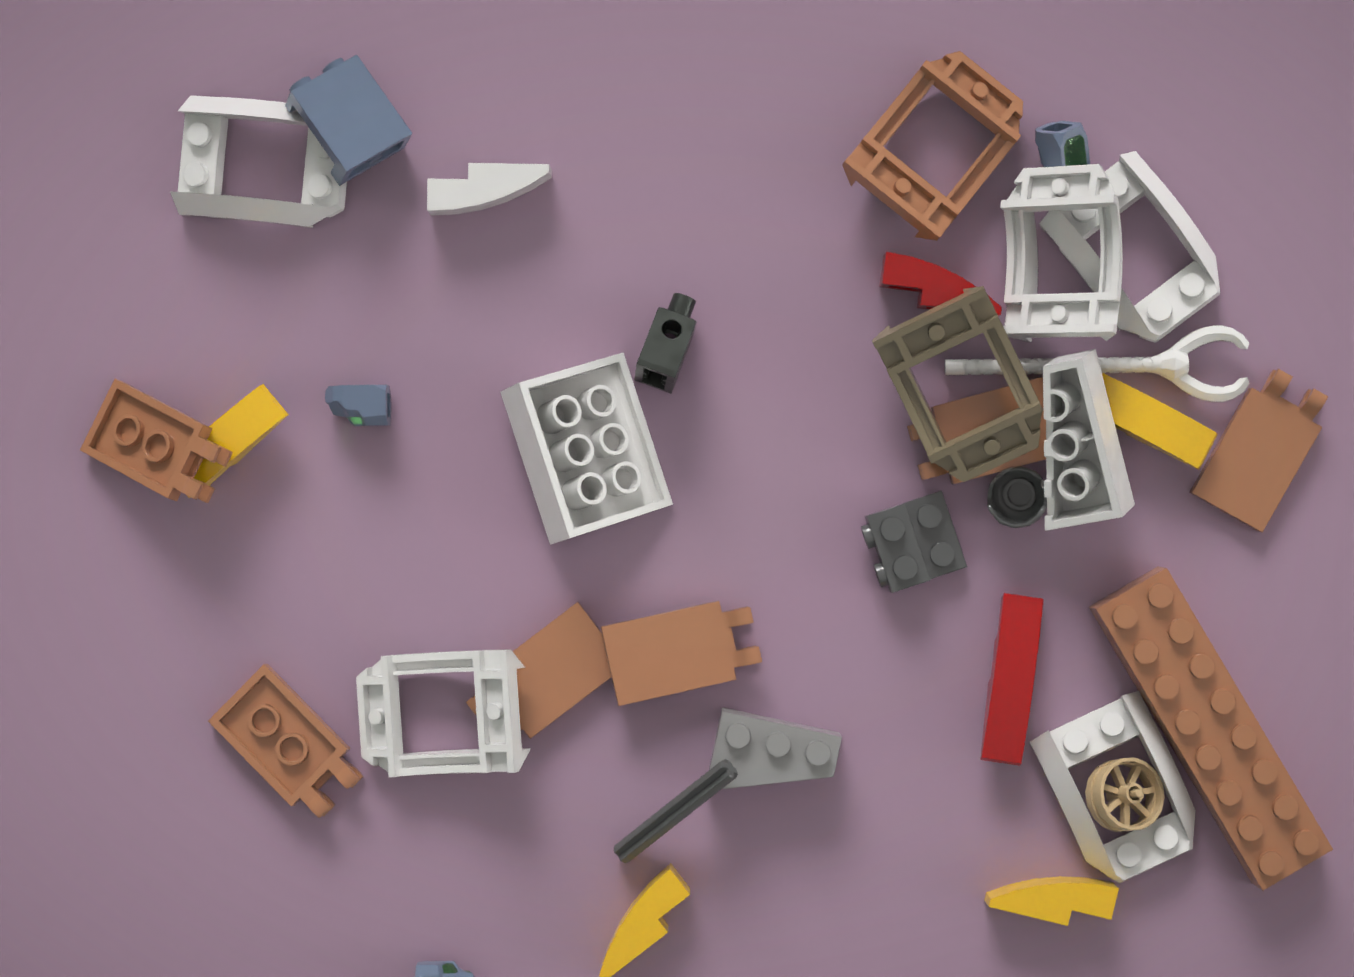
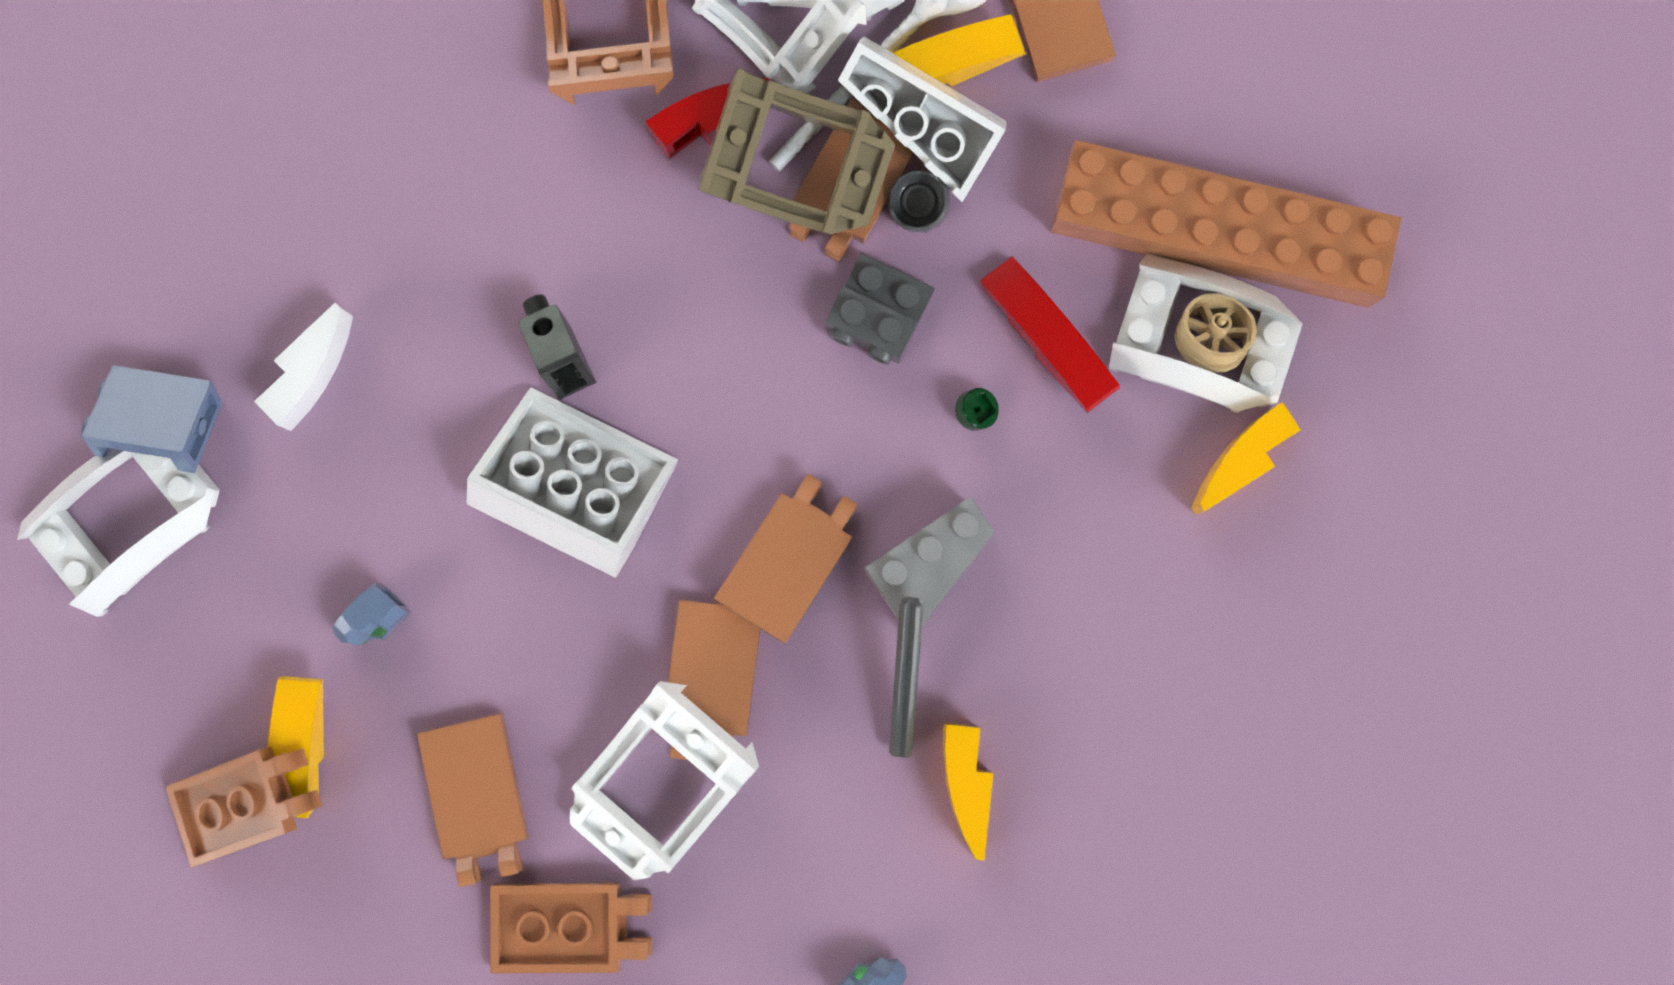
camera: 50 degrees left, 5 degrees down
(312, 592) = (474, 795): none -> nougat tile
(909, 679) = (977, 409): none -> dark green tile

